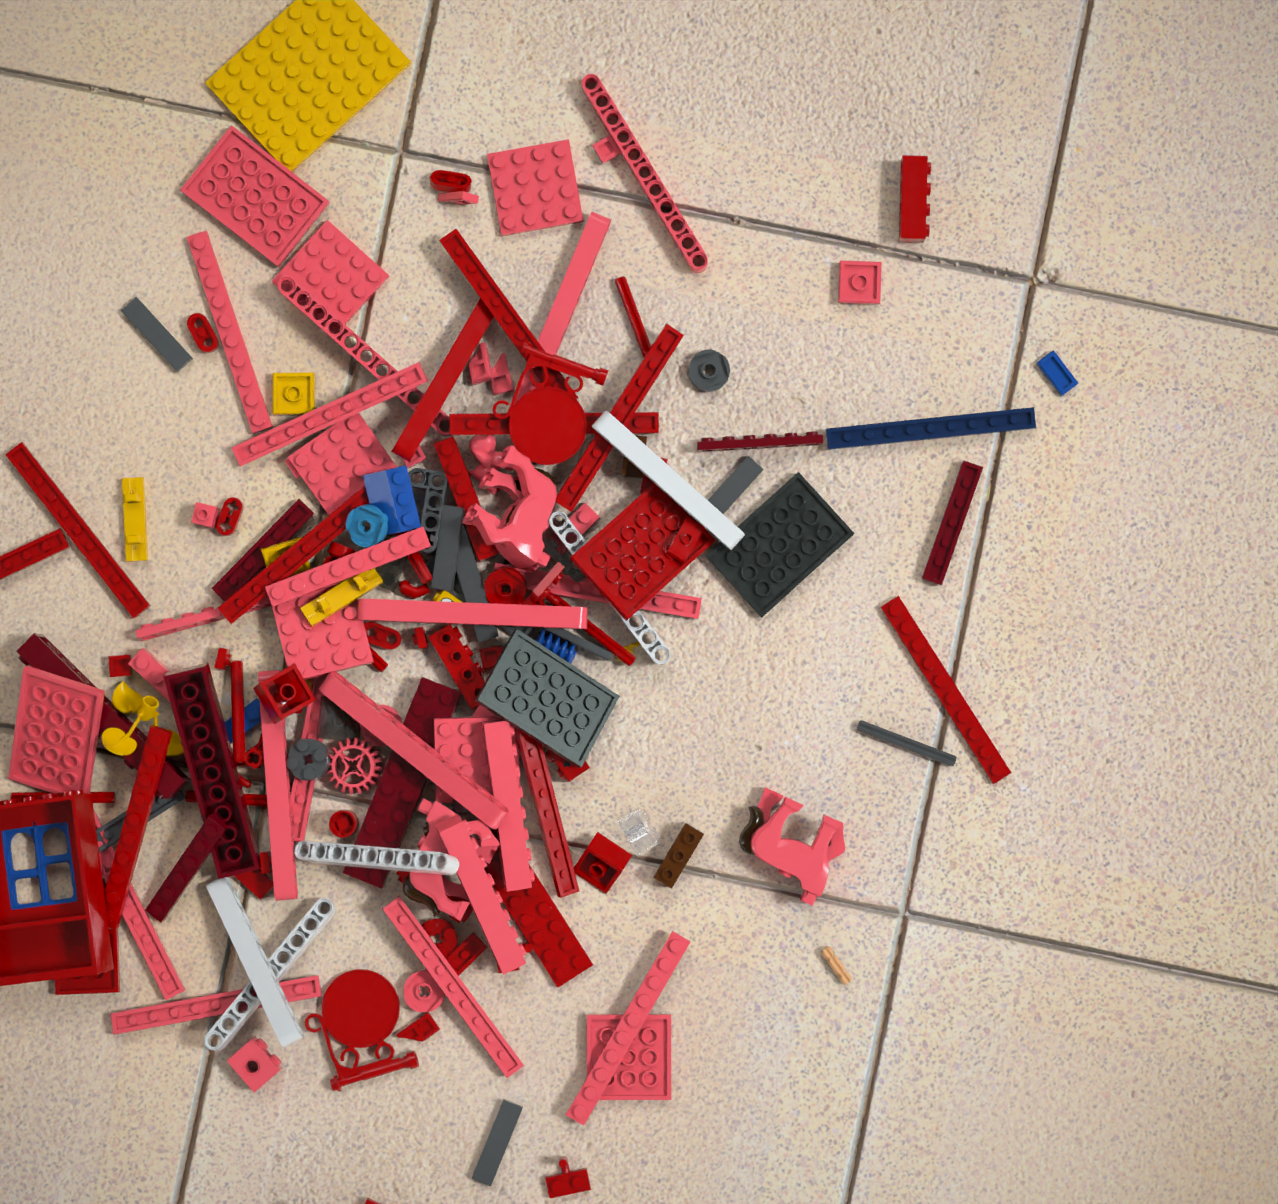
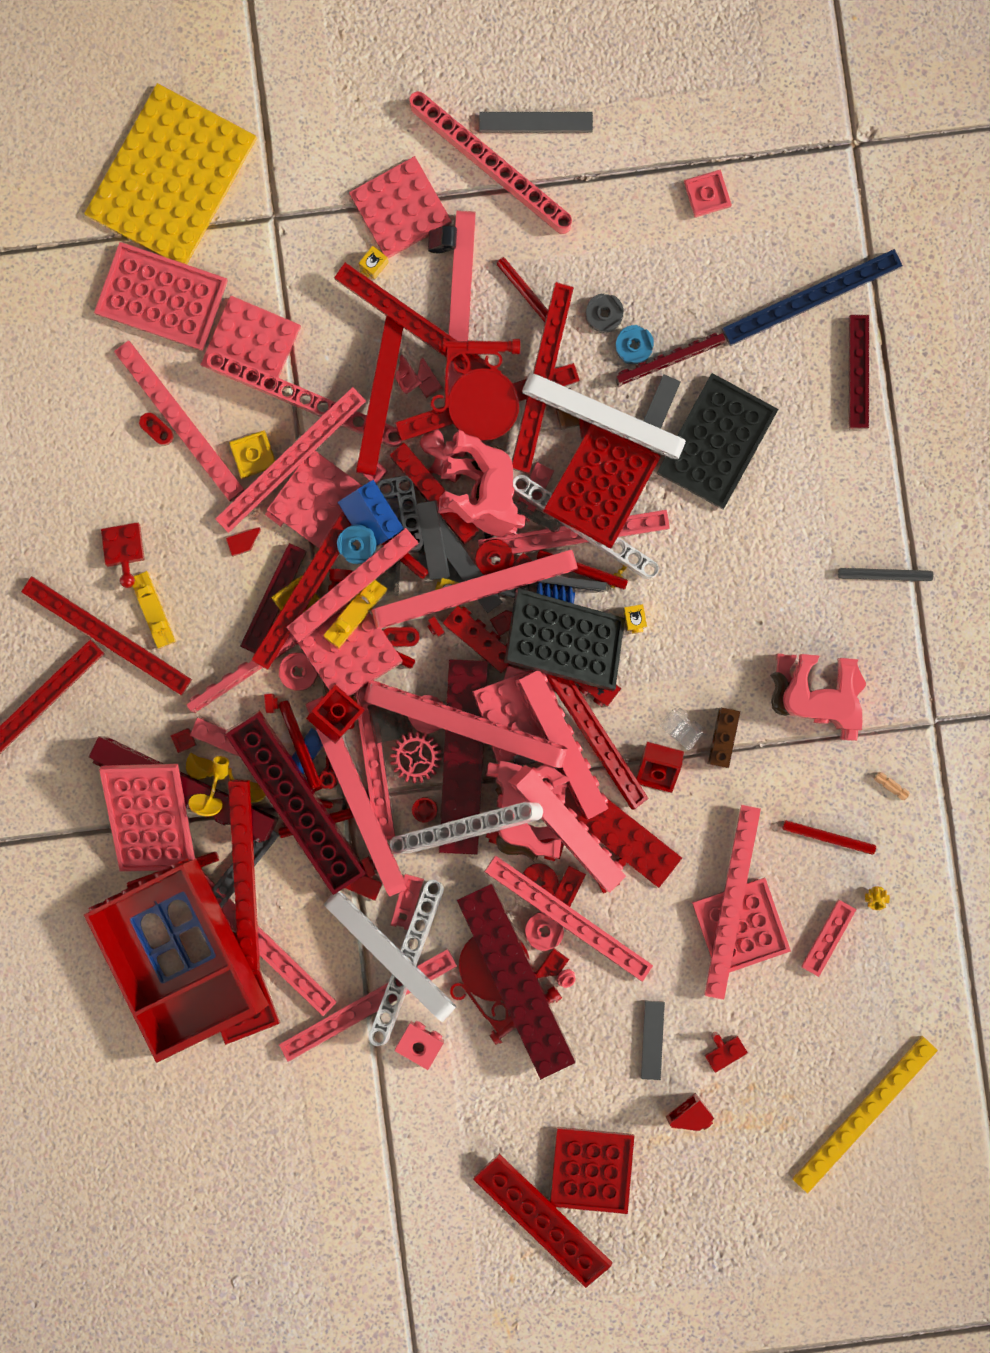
camera: 20 degrees left, 0 degrees up
(126, 443) = (123, 546): none -> red plate
(157, 334) = (117, 444): dark grey tile -> none
(186, 868) = (302, 895): dark red plate -> none
(205, 515) = (213, 584): coral brick -> none
(223, 517) = (239, 580): red beam -> none
(252, 480) = (242, 542): none -> red tile
(252, 629) = (296, 682): none -> coral plate
(293, 911) = (407, 901): none -> coral plate
(297, 755) = (383, 757): dark grey plate -> none
(376, 1032) = (516, 981): none -> dark red brick
(411, 591) = (414, 590): red arm -> none
(429, 1047) = (566, 978): none -> coral plate
(450, 181) = (326, 226): red plate -> none
(461, 197) = (339, 237): coral tile -> none
(486, 237) = (373, 263): none -> yellow brick
(542, 590) = (528, 546): red plate -> none
(566, 237) = (442, 239): none -> black beam
(606, 149) = (450, 153): coral plate -> none
(629, 700) = (635, 618): none -> yellow brick
(685, 540) = (635, 463): red plate -> none
(707, 146) = (535, 122): none -> dark grey tile
(715, 1100) = (828, 938): none -> coral plate
(721, 424) = (631, 355): none -> dark azure plate
(753, 996) = (829, 837): none -> red axle
(779, 1076) = (877, 898): none -> yellow gear
(914, 199) = (729, 105): red brick -> none
(946, 690) = (903, 517): red plate -> none
(1057, 373) = (903, 214): blue tile -> none

